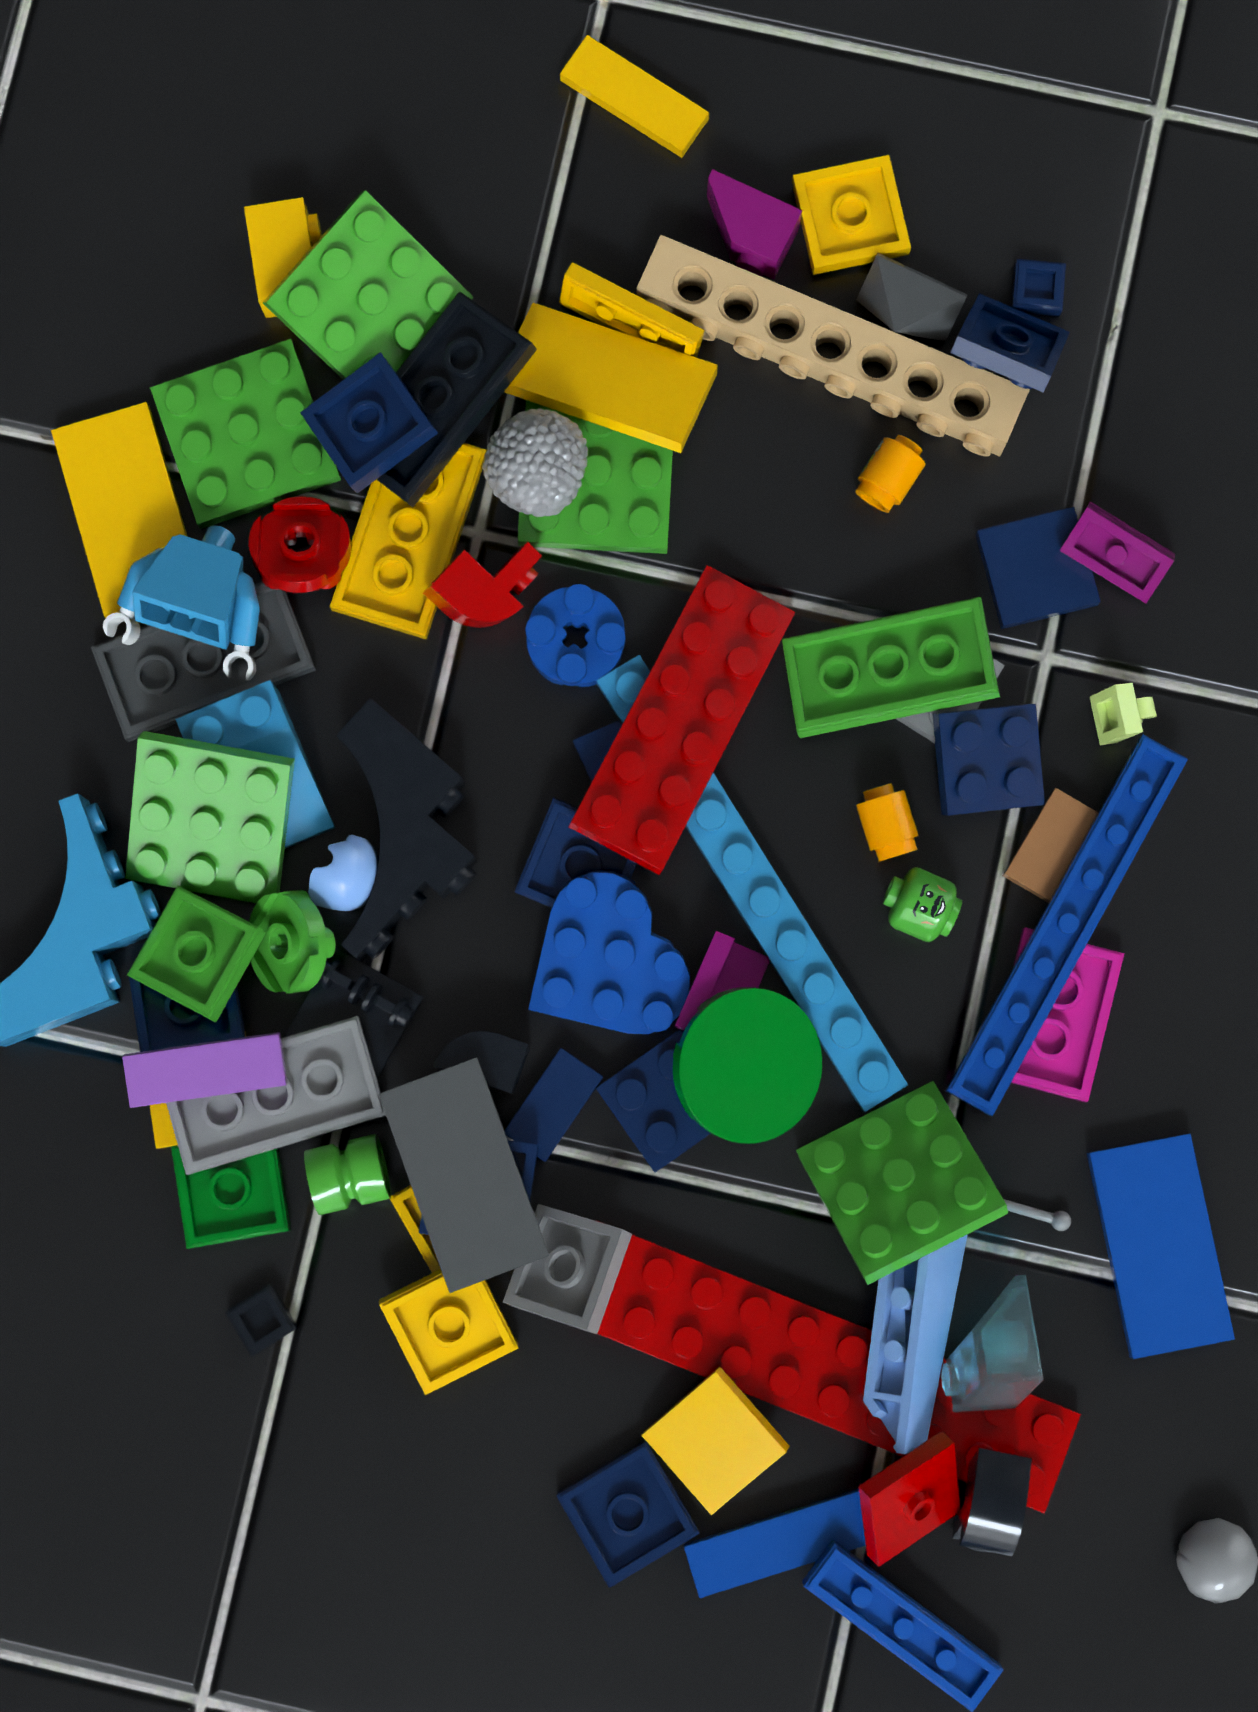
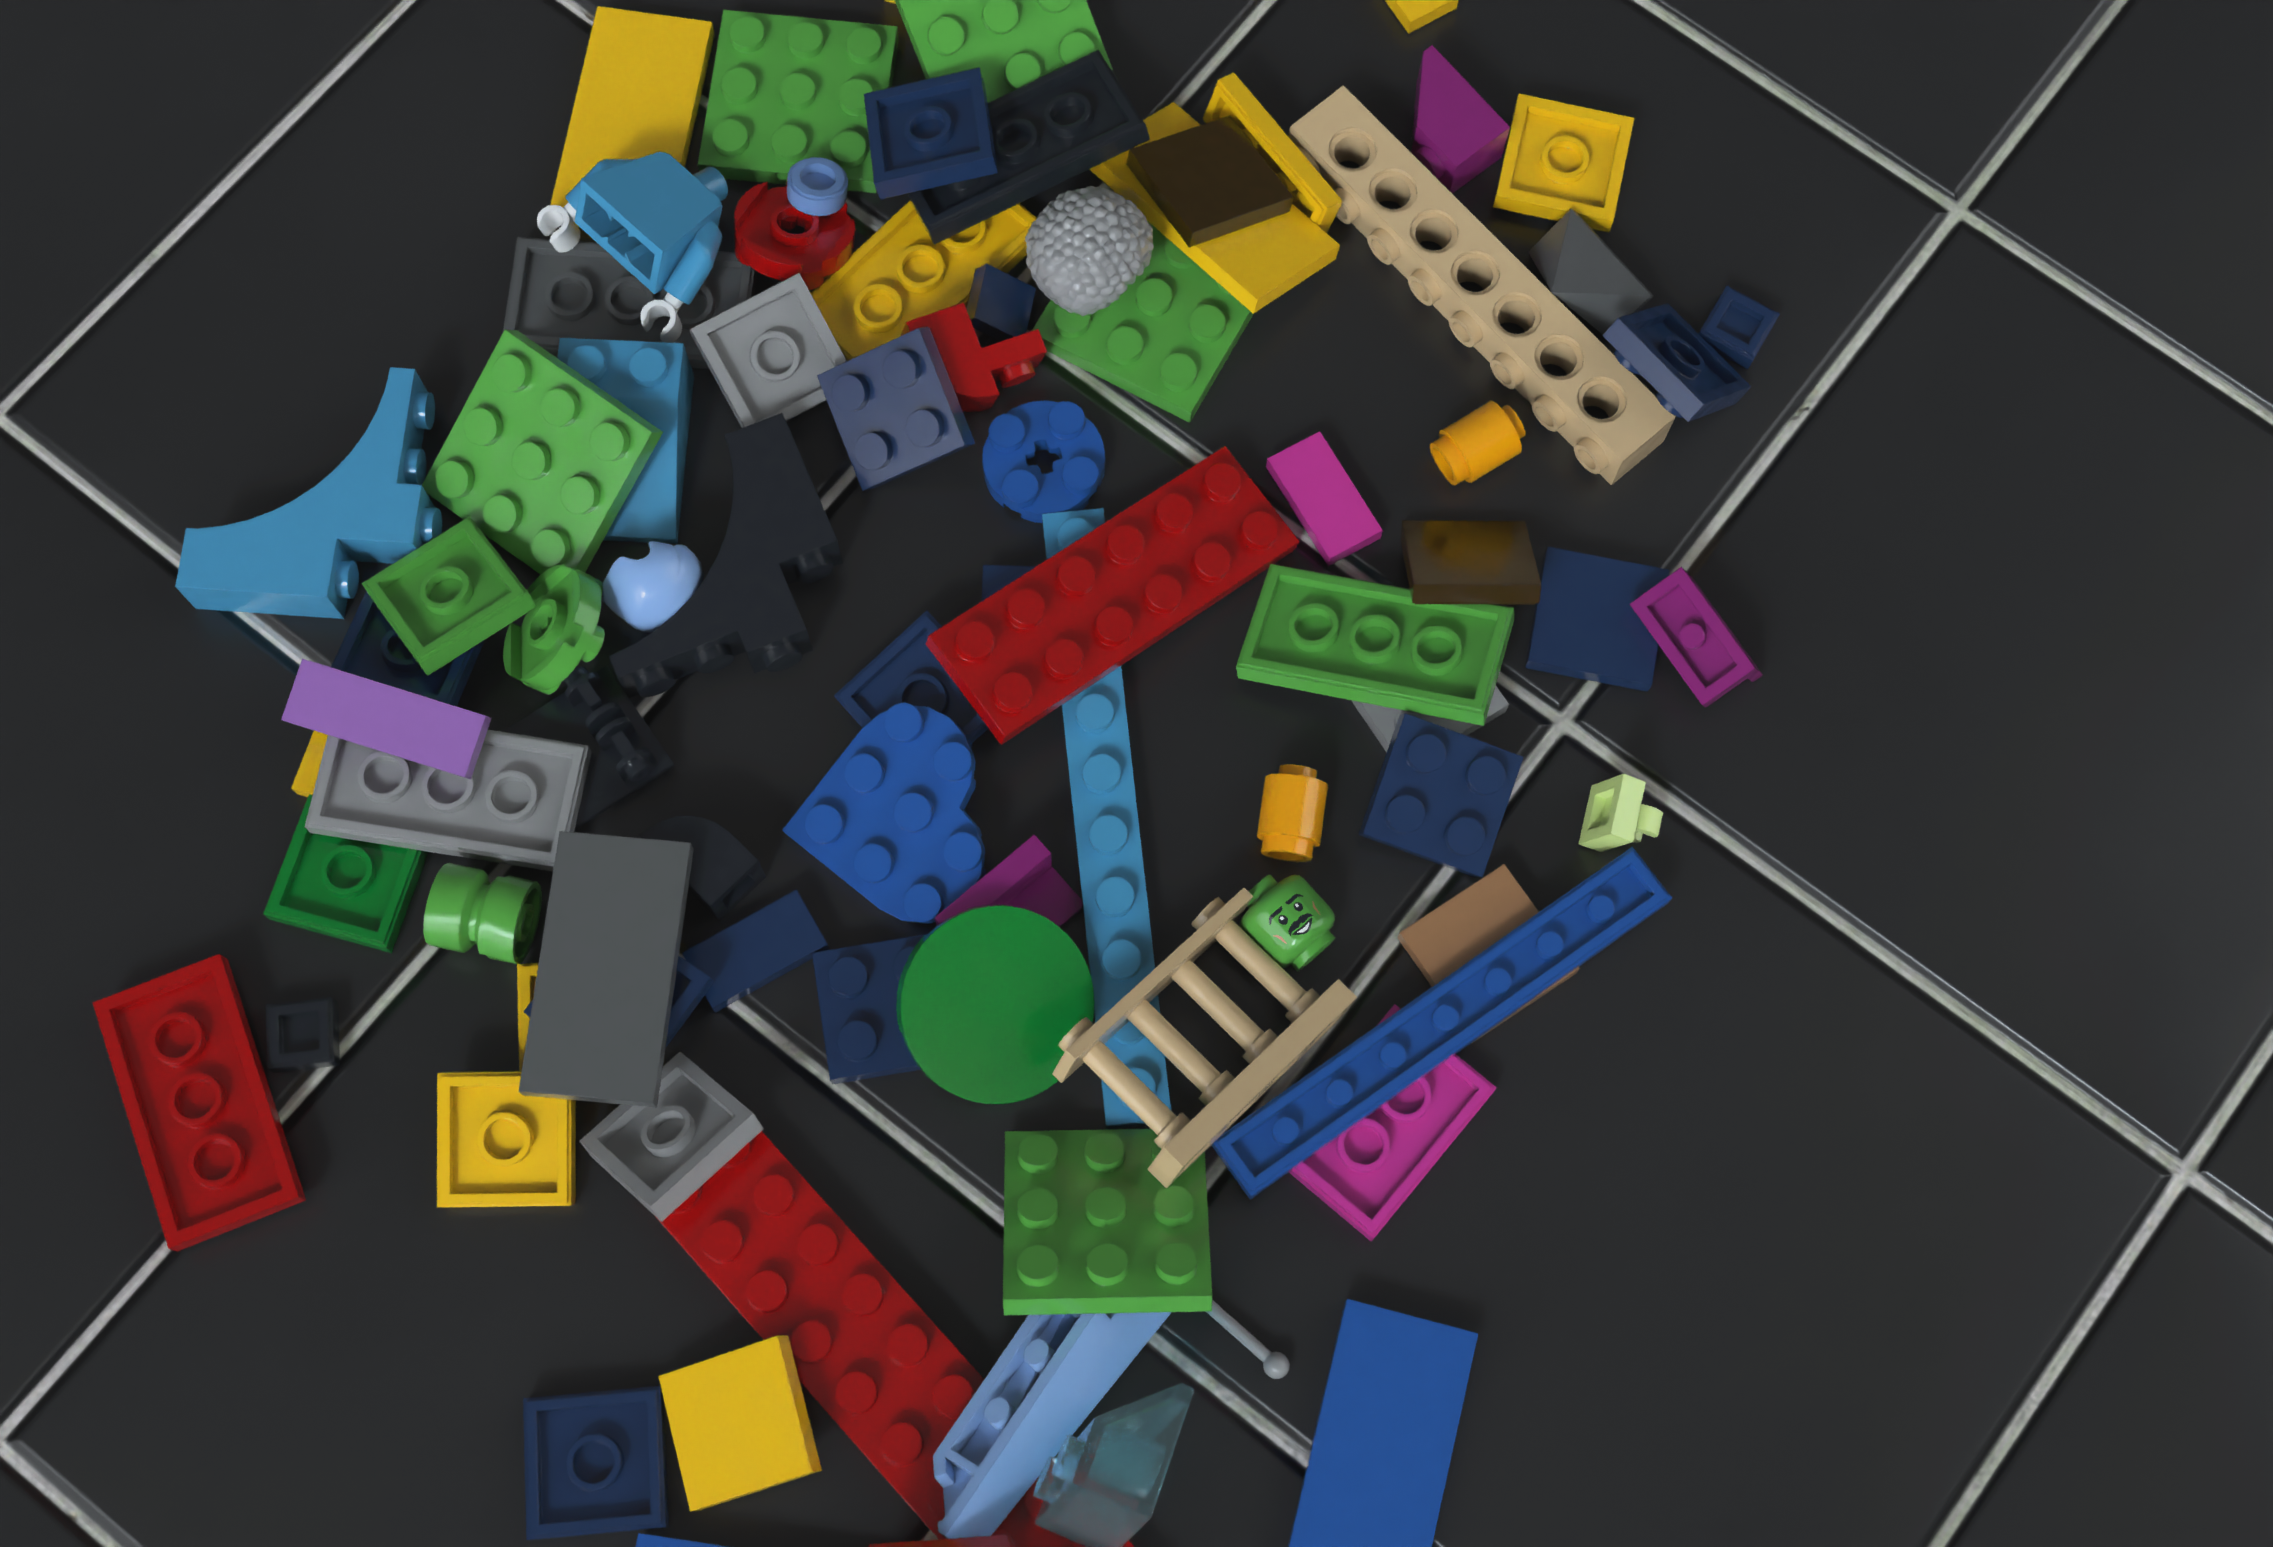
camera: 20 degrees right, 10 degrees down
(215, 1403) = (198, 1102): none -> red plate
(301, 502) = (817, 186): none -> medium blue tile
(338, 653) = (770, 352): none -> light grey plate
(453, 654) = (896, 408): none -> dark blue plate
(484, 530) = (999, 303): none -> dark blue tile
(597, 361) = (1209, 181): none -> dark brown tile
(796, 568) = (1324, 498): none -> dark pink tile
(929, 572) = (1470, 562): none -> dark brown tile
(943, 1056) = (1222, 1094): none -> tan fence

